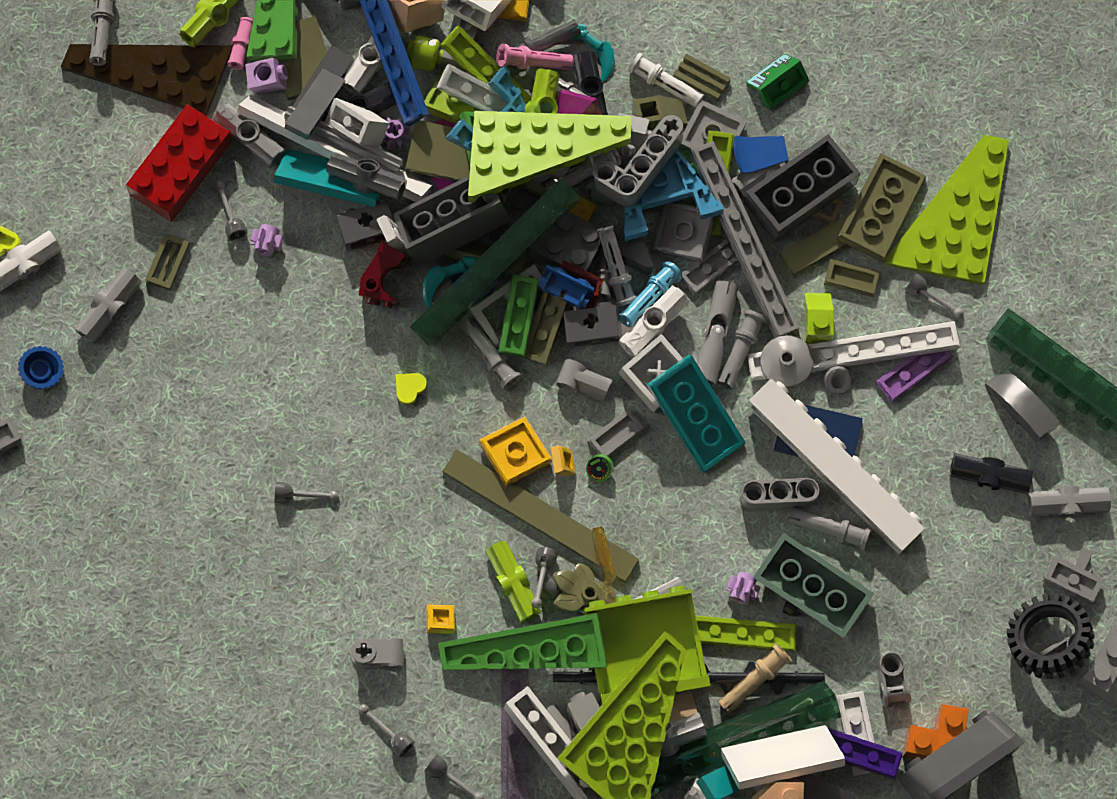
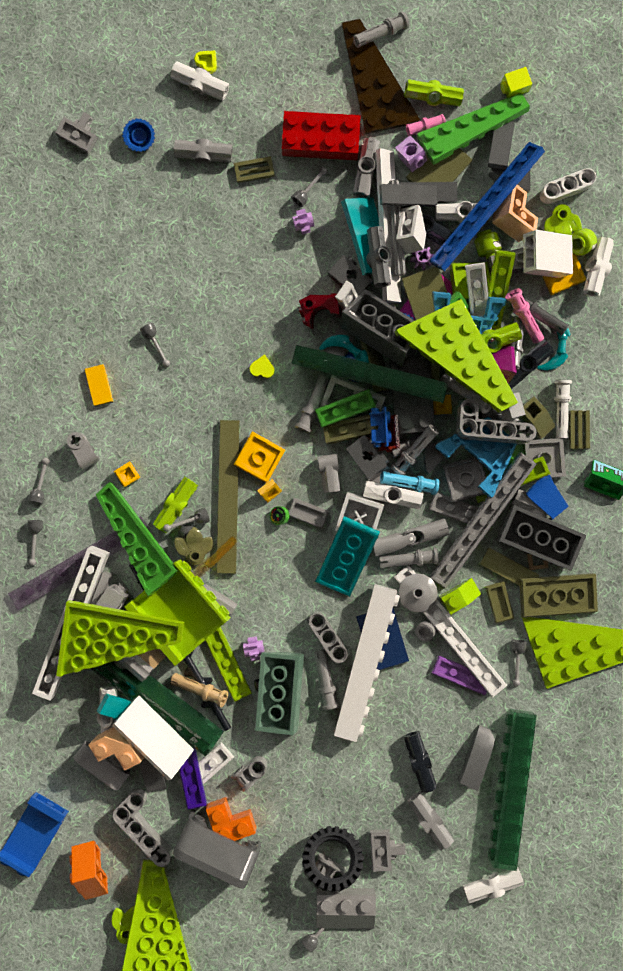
camera: 65 degrees right, 15 degrees up
(310, 590) = (98, 385): none -> yellow tile

